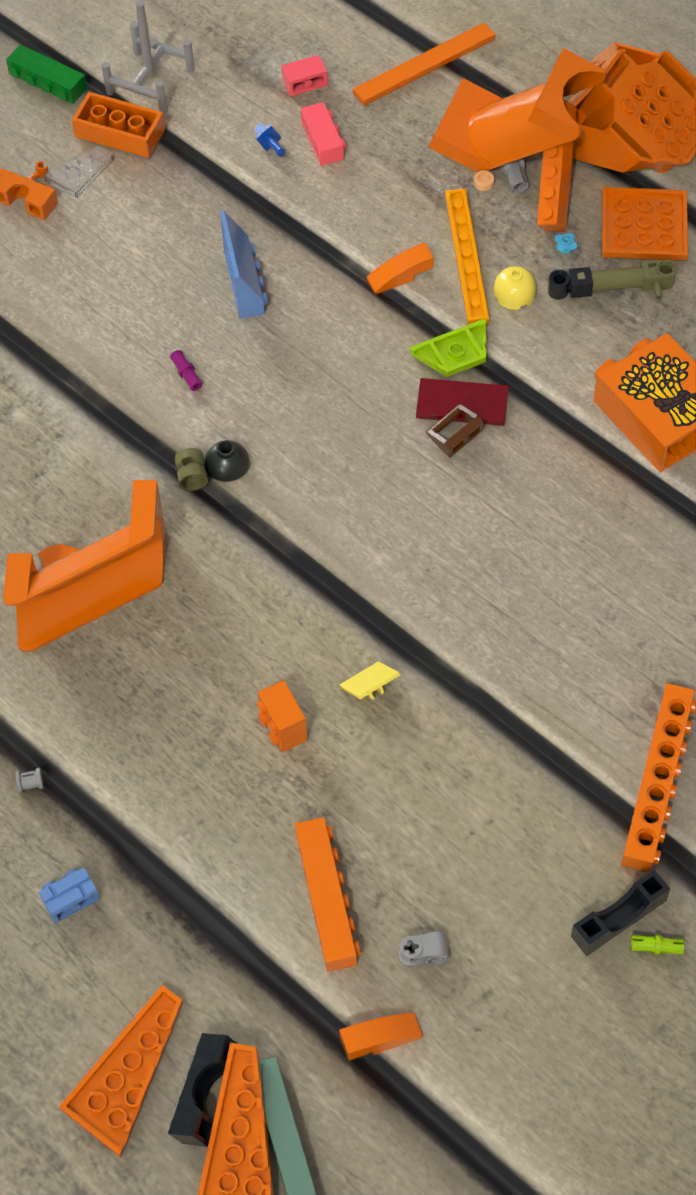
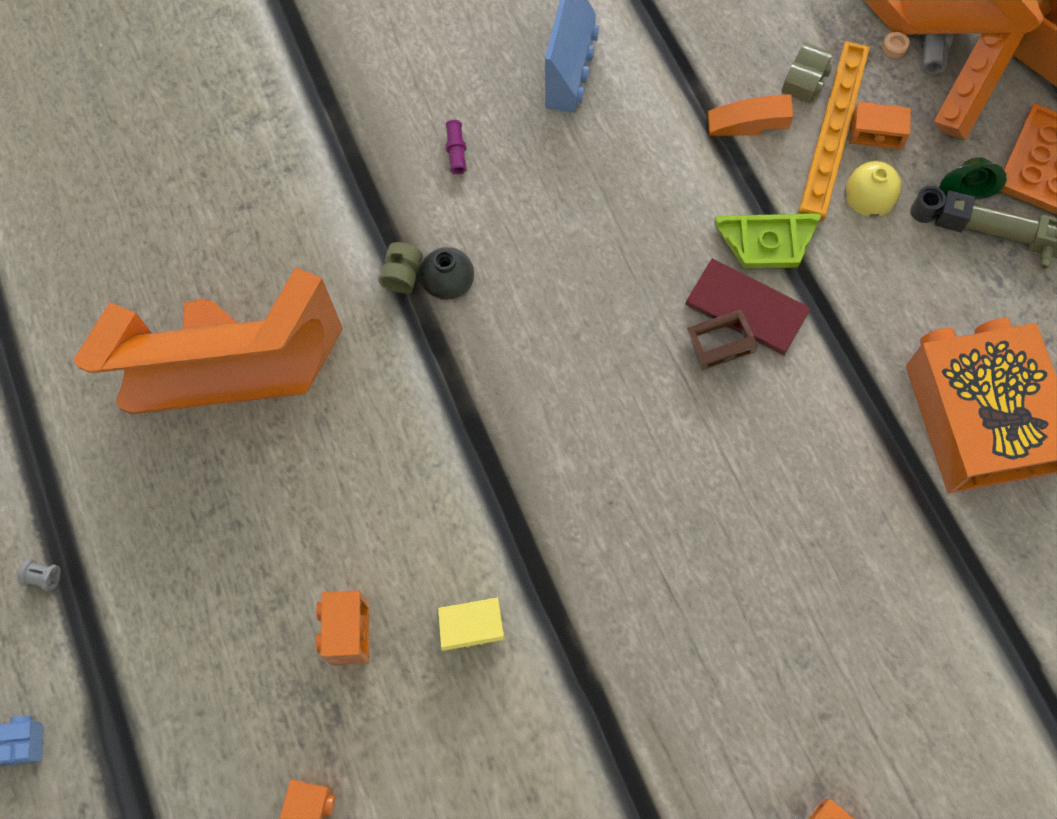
camera: 25 degrees right, 10 degrees up
(427, 223) = (807, 72): none -> olive brick
(499, 242) = (880, 125): none -> orange brick
(565, 243) = (953, 158): medium azure plate -> none
(584, 253) = (975, 178): none -> dark green piece

